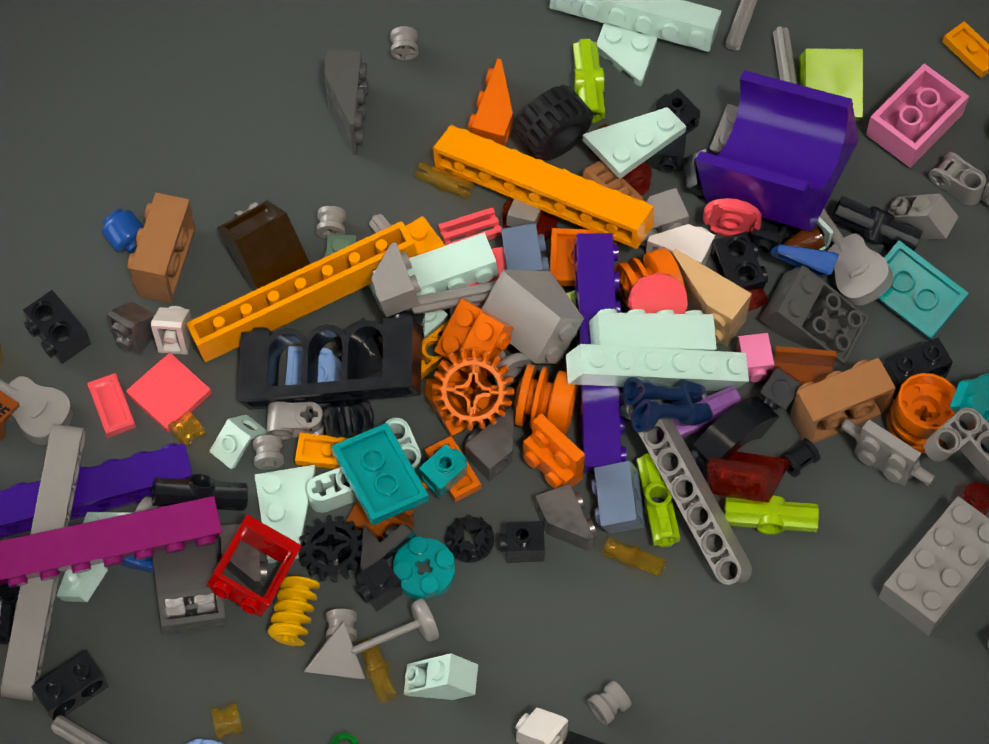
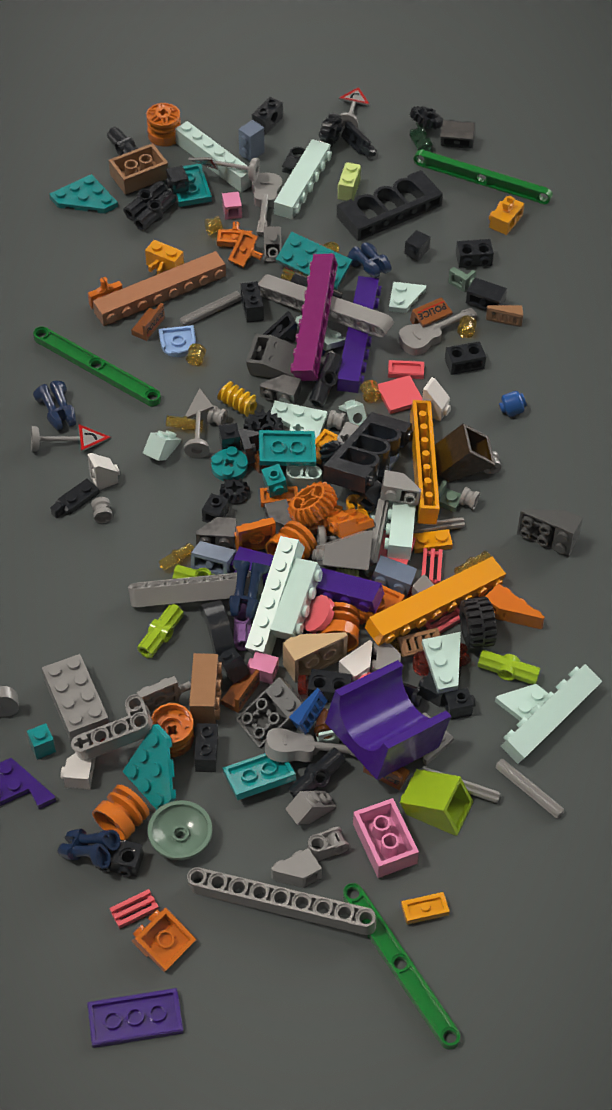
camera: 115 degrees right, 10 degrees down
(119, 609) = (284, 327): none -> black slope
(131, 327) = (447, 379): flat silver slope -> none
(162, 247) = (488, 410): medium nougat brick -> none
(270, 543) = (275, 390): red window -> none
(404, 43) = (584, 580): light grey wheel -> none
(746, 476) = (187, 623): clear red bracket -> none
(801, 457) = (185, 657): black bush -> none

